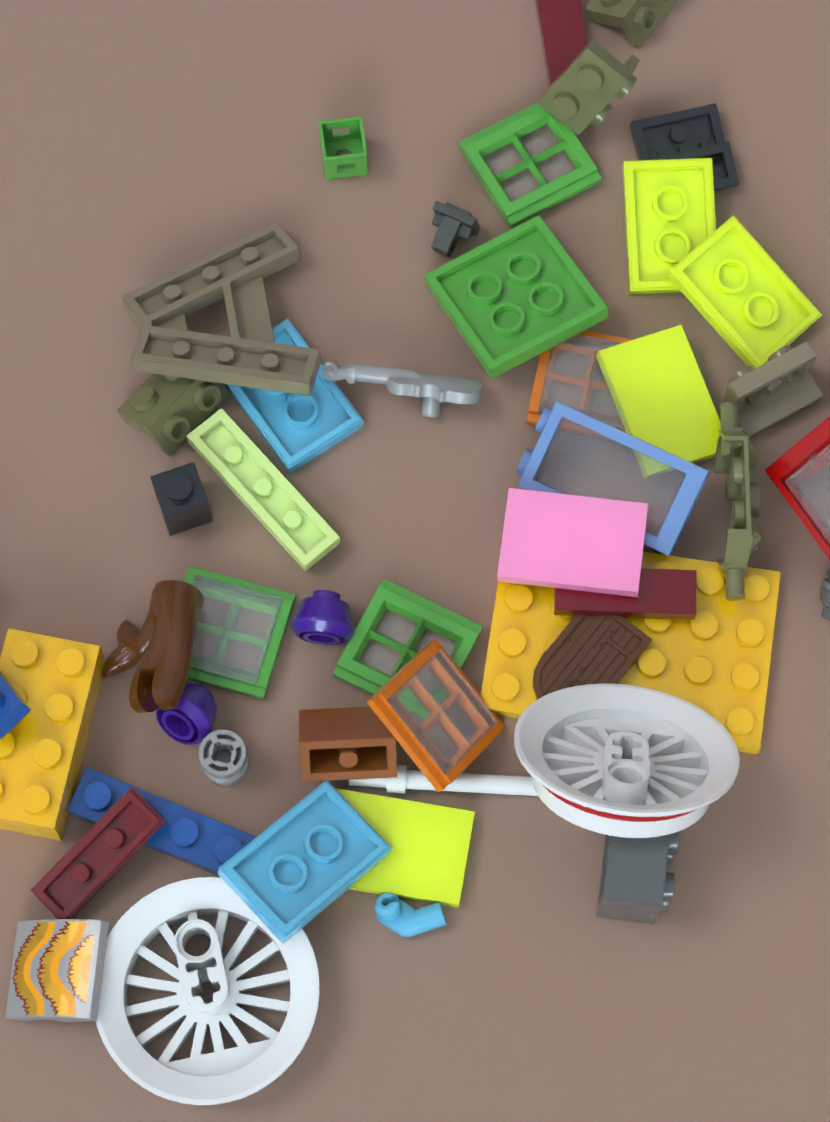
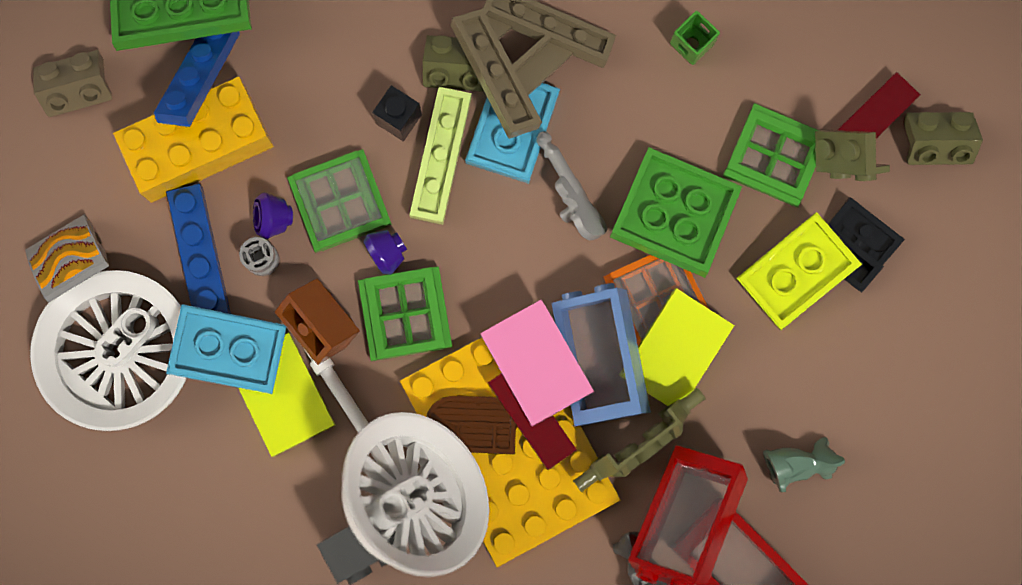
camera: 50 degrees right, 10 degrees up
(99, 855) = (151, 230): dark red tile -> none
(161, 645) = (295, 171): reddish brown piece -> none
(405, 919) = (242, 432): medium azure arm -> none
(436, 715) = (369, 360): clear piece -> none
(452, 225) = (694, 140): pearl dark grey brick -> none
(743, 293) = (787, 349): neon yellow tile -> none
(774, 389) = (735, 413): dark tan bracket -> none

